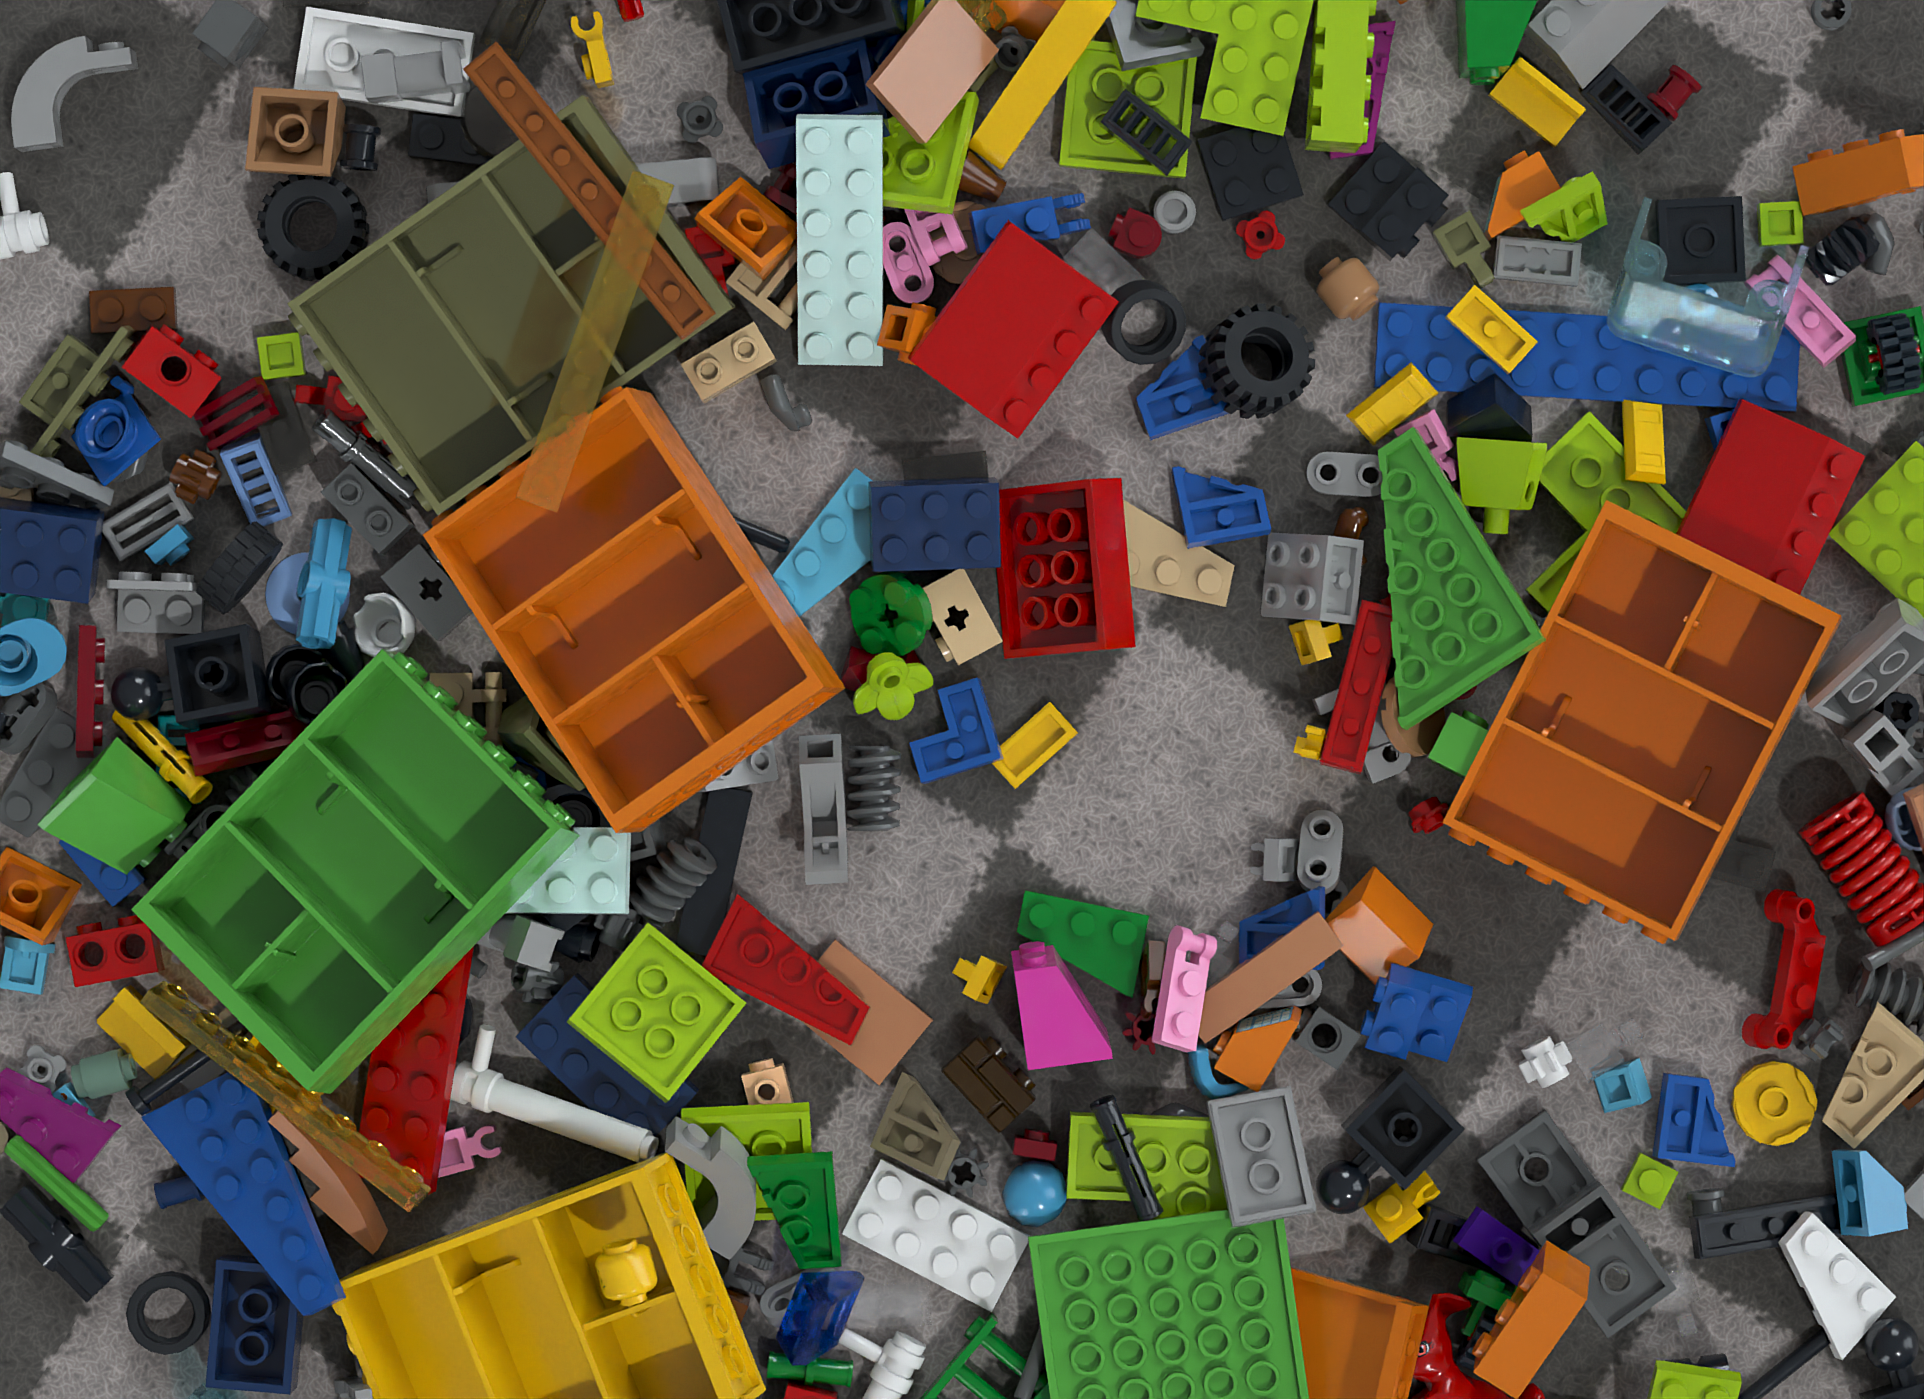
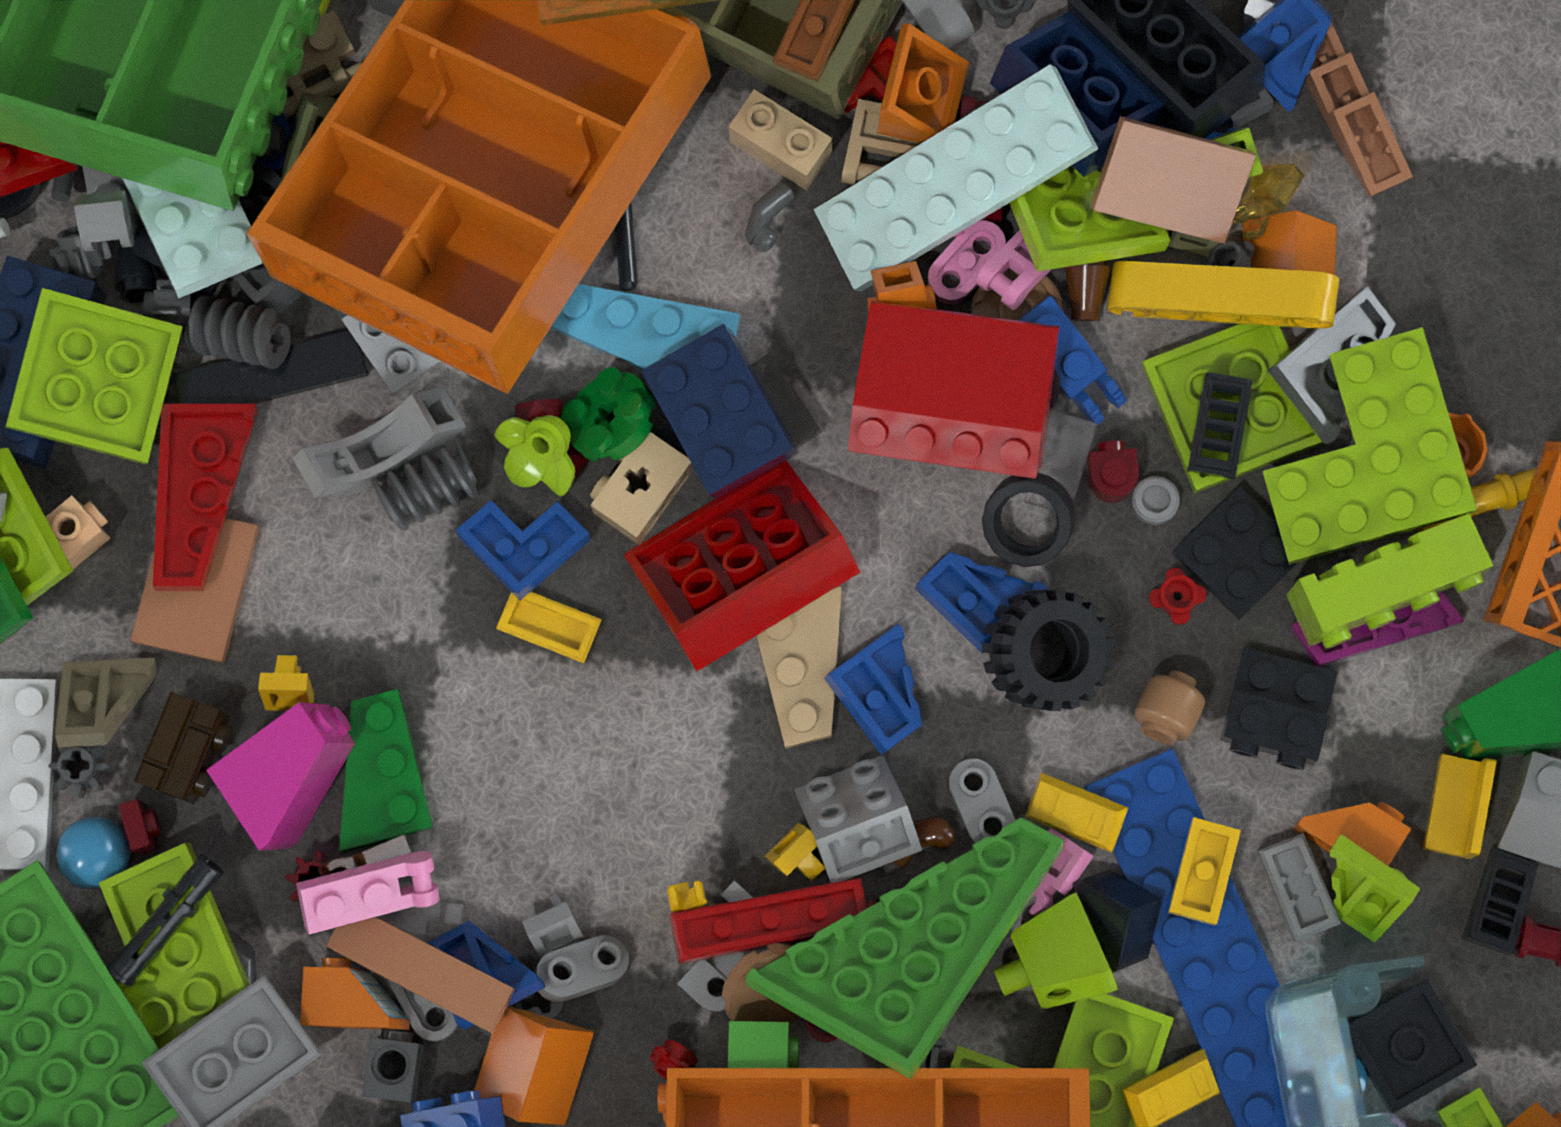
camera: 70 degrees right, 10 degrees down
(1204, 1078) = (291, 964): dark azure hair -> none
(1463, 244) = (1276, 804): olive plate -> none

